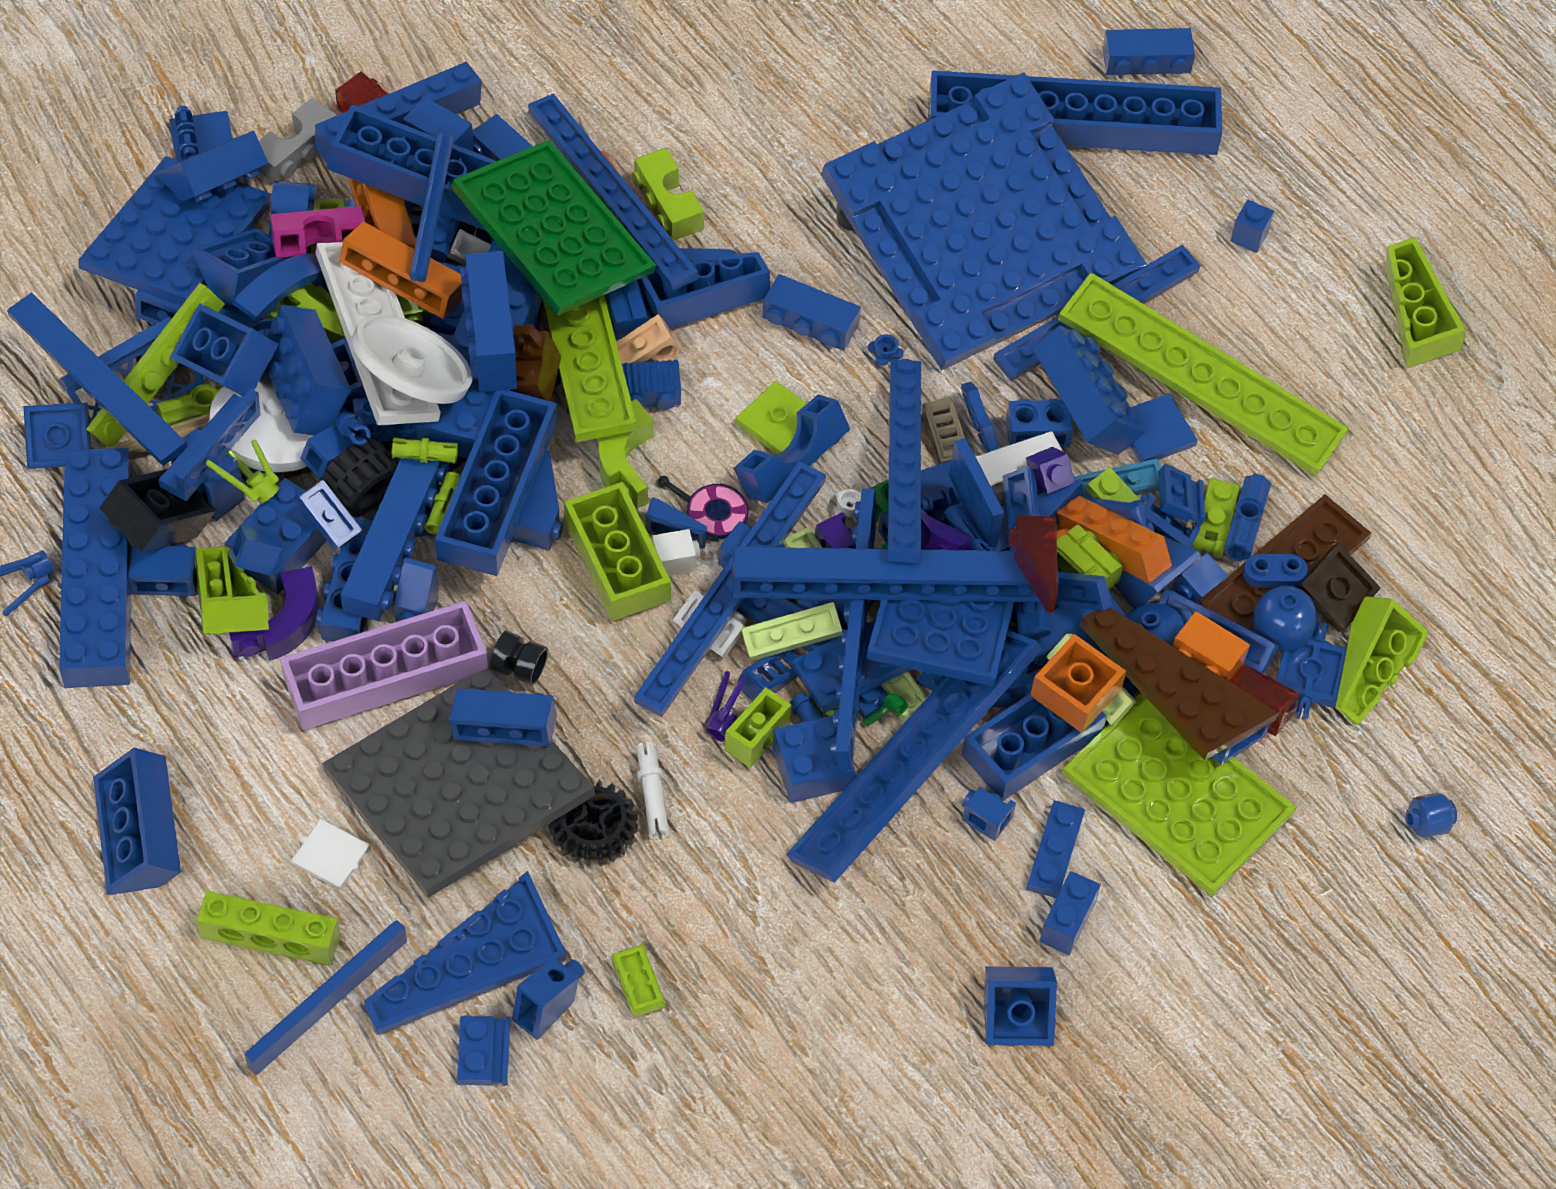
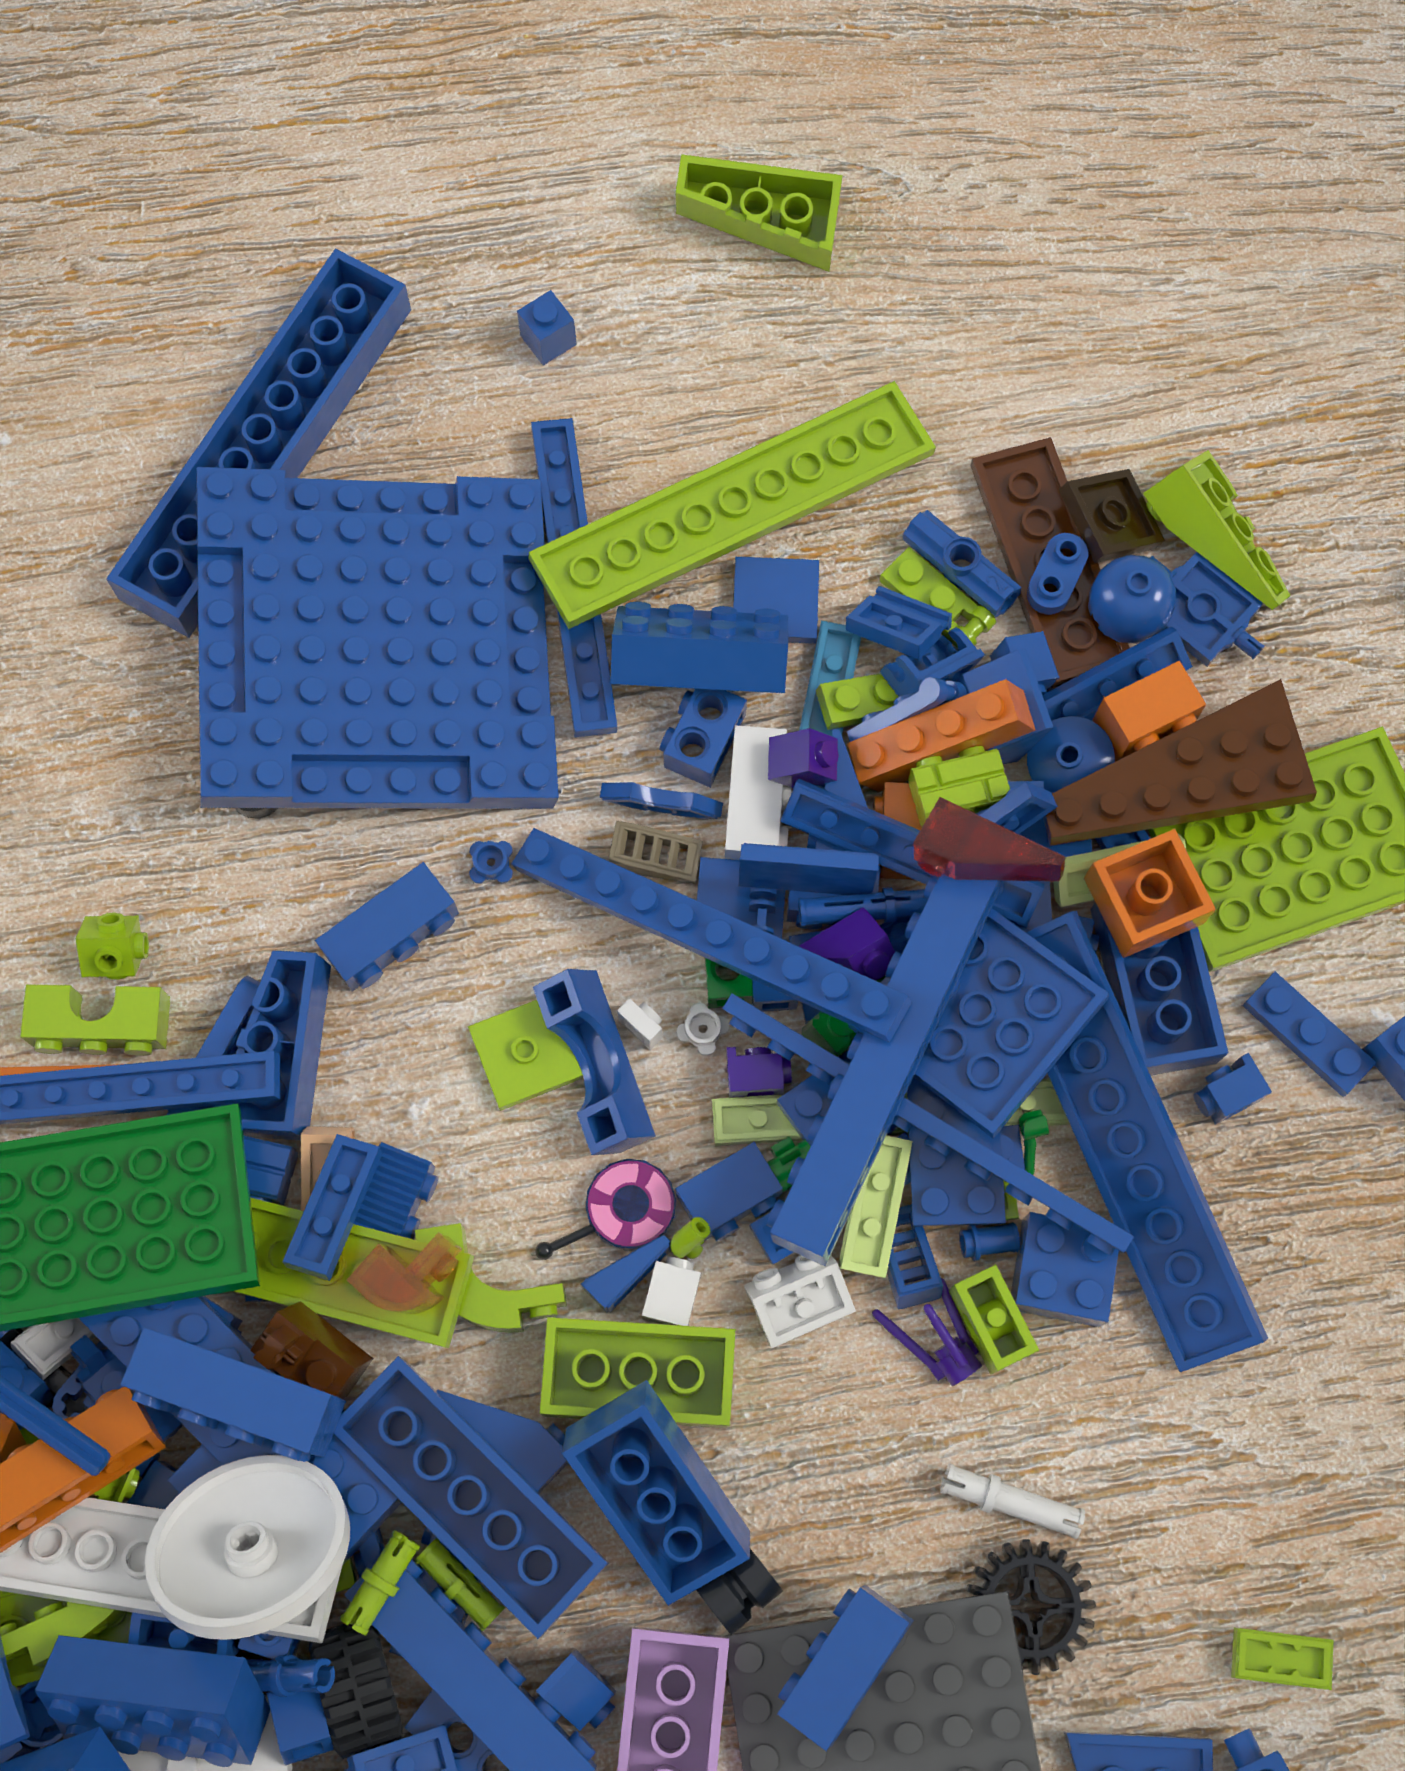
camera: 60 degrees left, 15 degrees up
(551, 578) = (657, 1493): none -> blue brick
(603, 394) = (402, 1287): none -> clear orange brick
(624, 342) = (332, 1207): none -> blue plate
(710, 543) = (689, 1238): none -> lime arm
(714, 179) = (111, 946): none -> lime brick
(718, 603) = (797, 1278): blue plate -> none
(833, 466) = (641, 1022): none -> white plate
(1148, 51) = (214, 303): blue brick -> none
(1270, 693) = (1231, 676): clear red brick -> none

